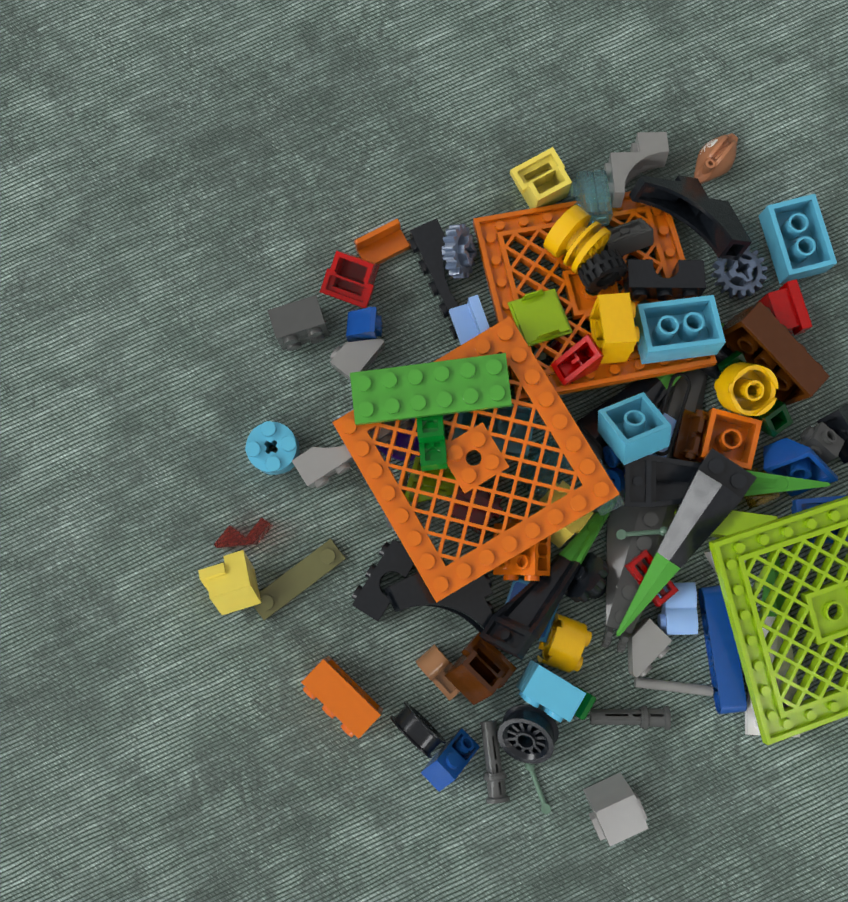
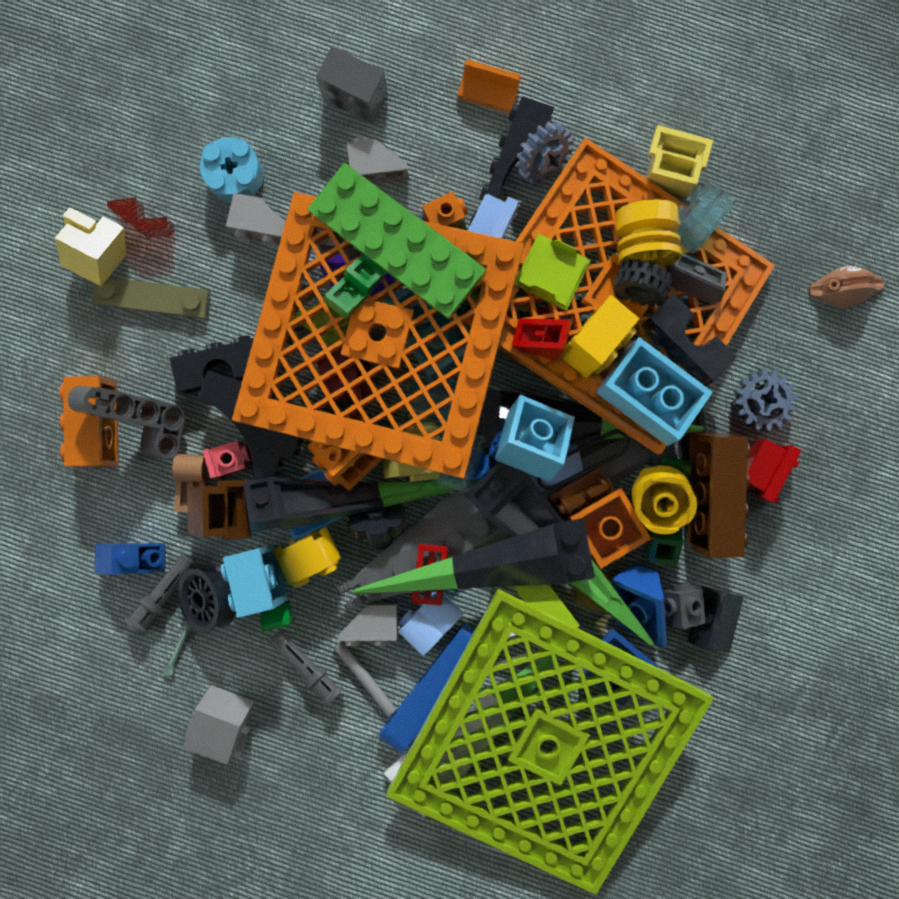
camera: 45 degrees right, 5 degrees up
(350, 279) = (432, 89): red plate -> none
(364, 325) = (405, 140): blue slope -> none
(384, 651) = (155, 426): none -> dark grey beam
(417, 729) = (123, 507): black wheel -> none
(432, 345) = (446, 211): none -> orange brick
(442, 640) = (216, 465): none -> coral brick
(622, 534) = (441, 516): sand green hinge -> none
(646, 153) = (788, 225): light grey arch -> none
(690, 204) = (779, 300): black arch -> none
(797, 238) = (842, 419): medium azure brick -> none

